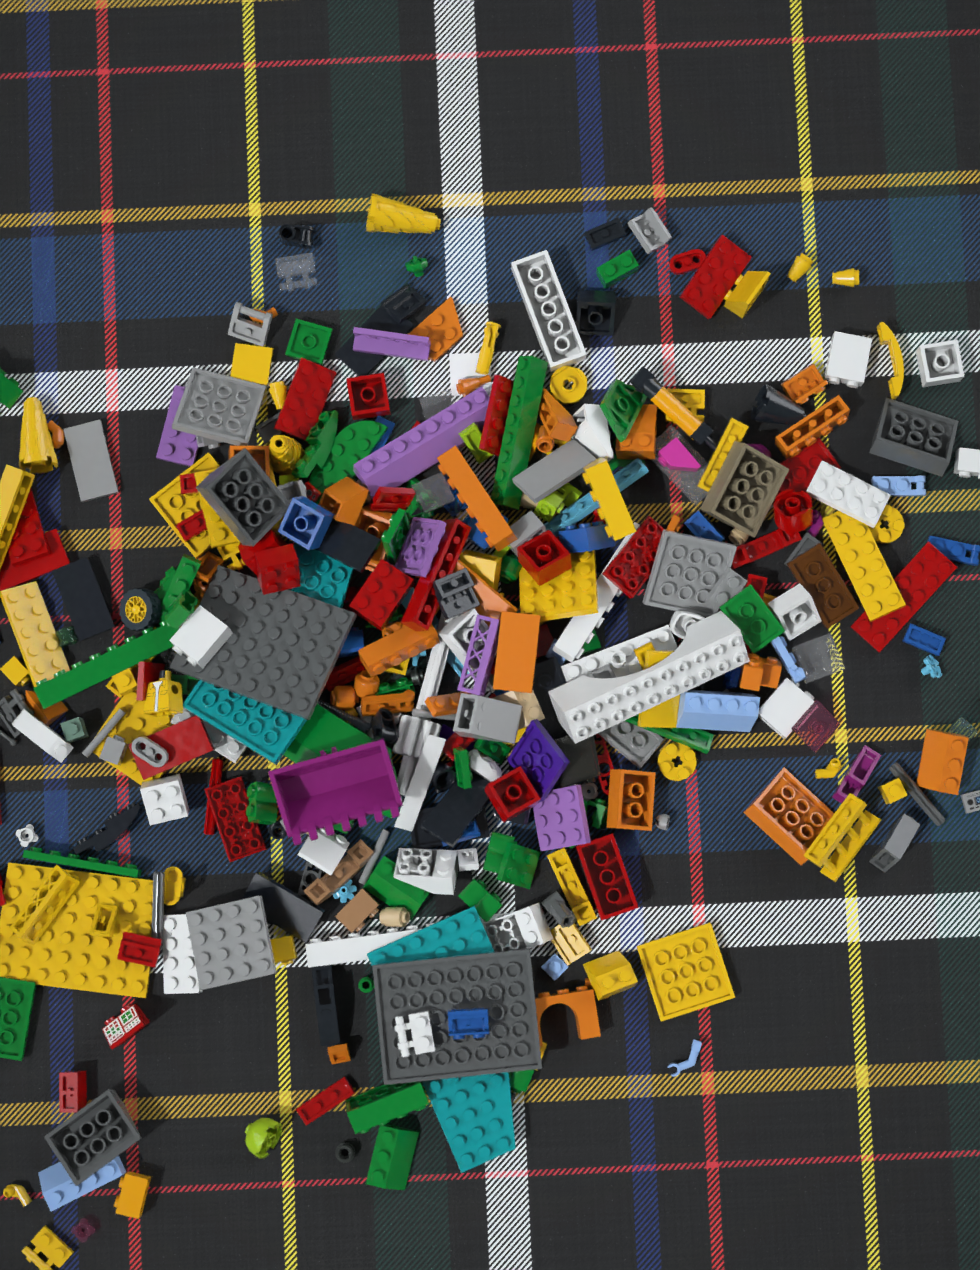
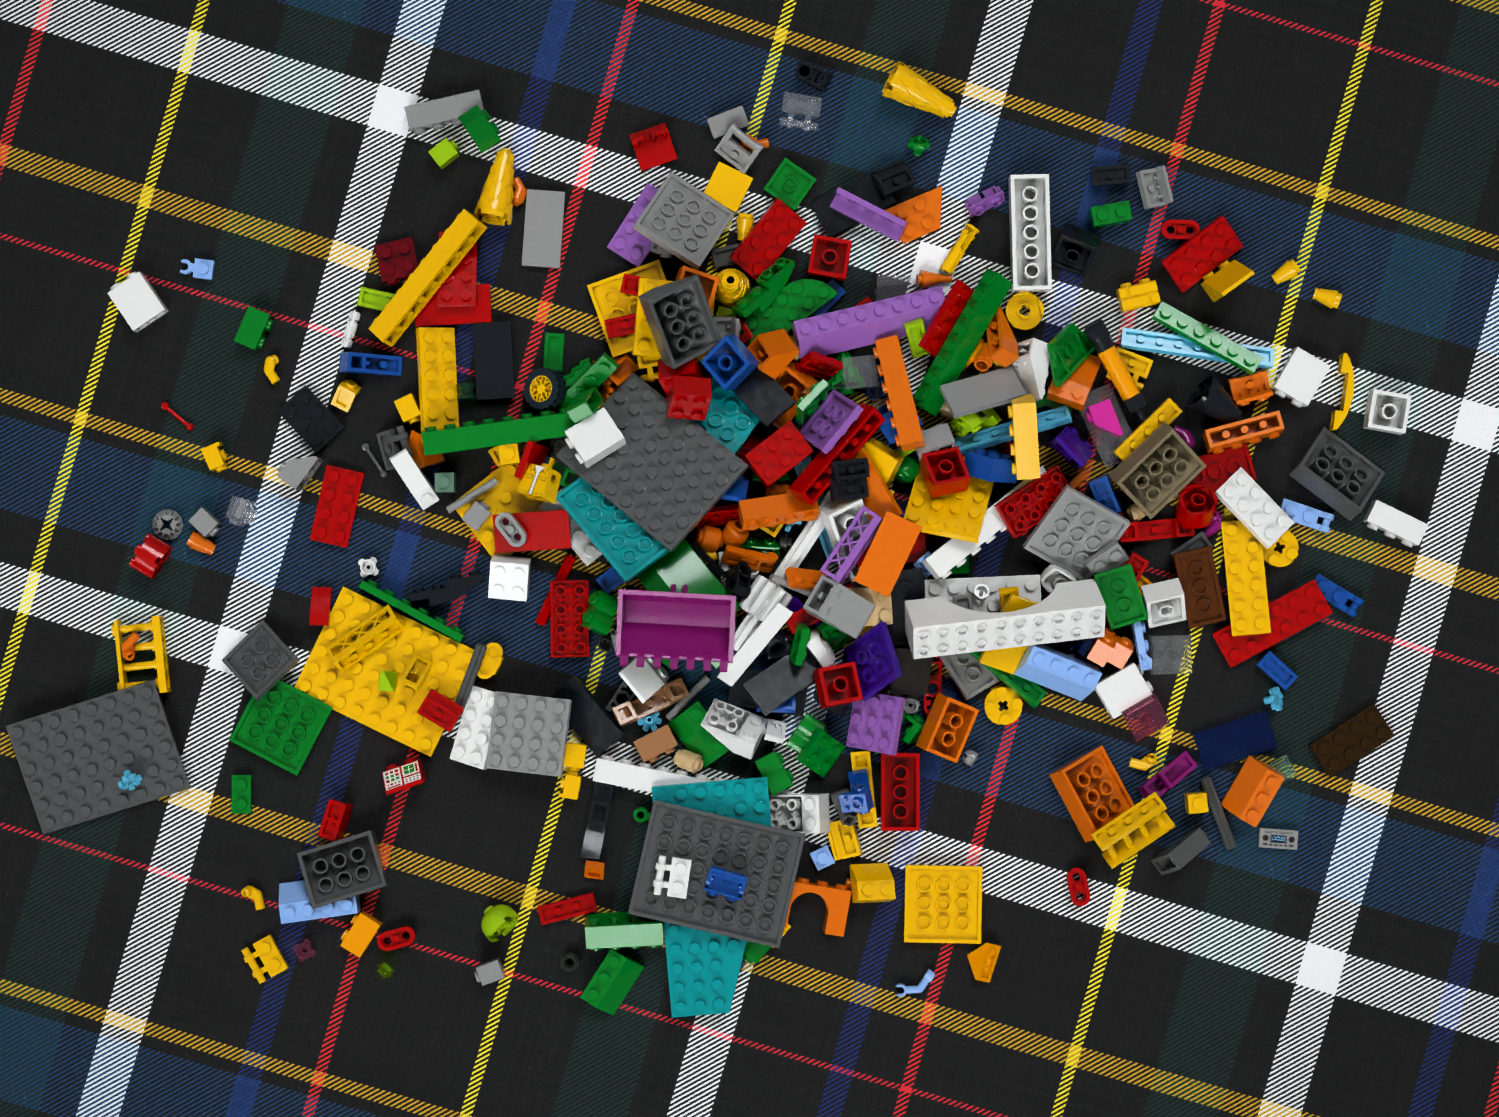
camera: 15 degrees right, 5 degrees up
(79, 938) = (387, 681): none -> lime slope
(138, 571) = (554, 351): none -> green tile
(167, 1222) = (384, 970): none -> clear neon green plate
(169, 350) = (653, 146): none -> red hinge
(169, 1186) = (397, 938): none -> red plate
(224, 307) = (722, 122): none -> light grey slope
(261, 768) = (609, 580): none -> blue plate
(270, 1189) = (489, 972): none -> light grey brick
(289, 979) = (570, 785): none -> yellow brick
(503, 291) = (977, 205): none -> medium lavender hinge
(569, 894) = (860, 796): none -> blue tile
(656, 495) = (1072, 447): none -> dark purple slope
(669, 335) = (1138, 295): none -> yellow brick
(741, 364) = (1180, 346): none -> medium azure plate
(743, 1013) = (984, 961): none -> light orange slope
(748, 352) = (1207, 338): none -> plate
(806, 911) = (1077, 886): none -> red plate
(908, 720) = (1234, 740): none -> clear blue tile

